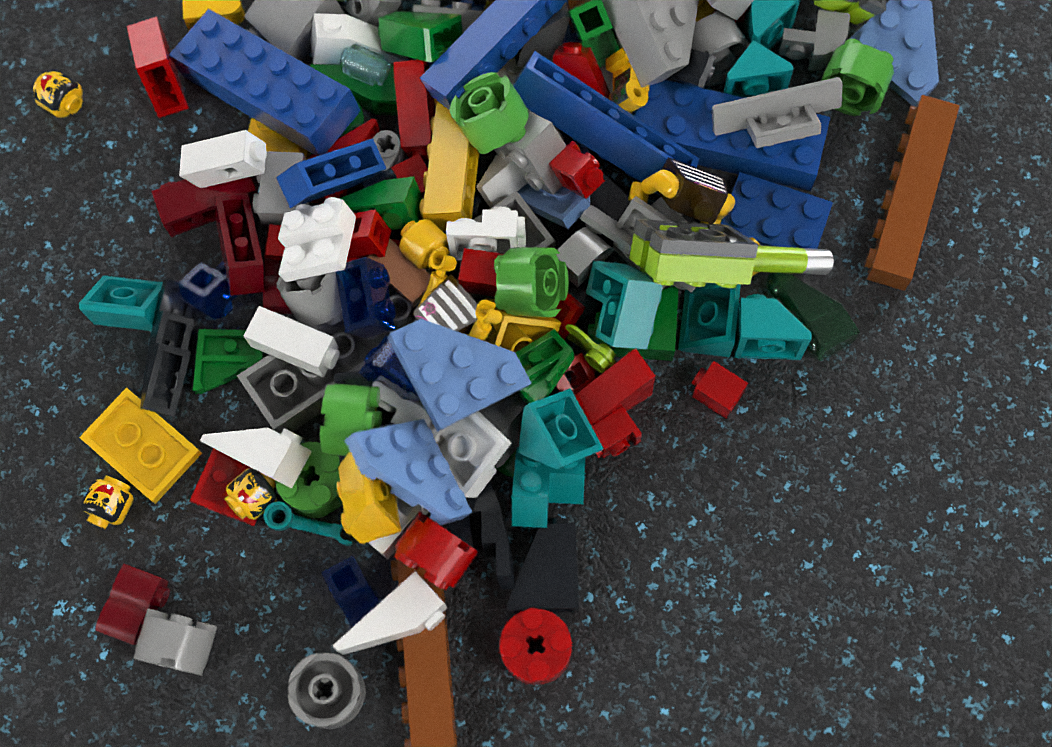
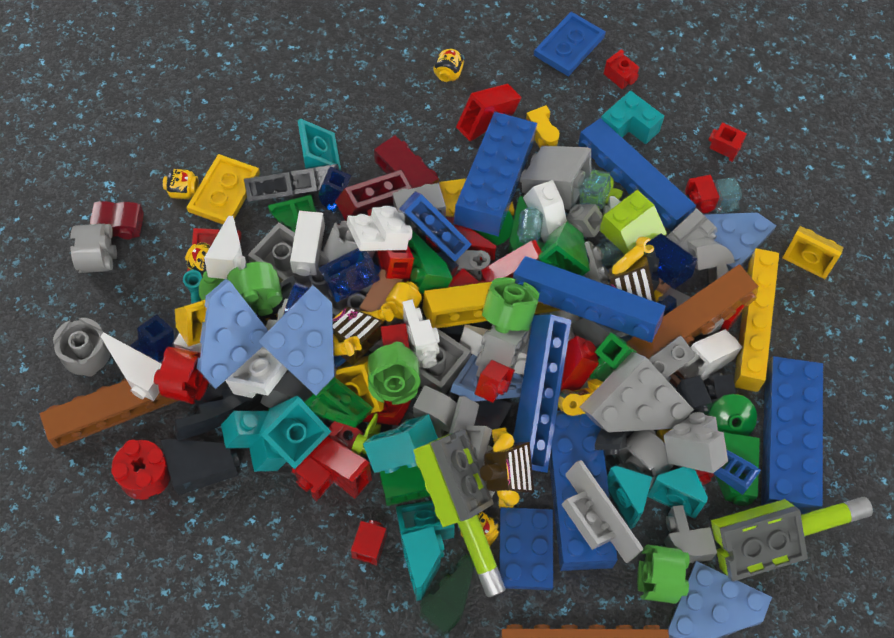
camera: 65 degrees right, 10 degrees down
(223, 159) = (424, 162): white brick -> none

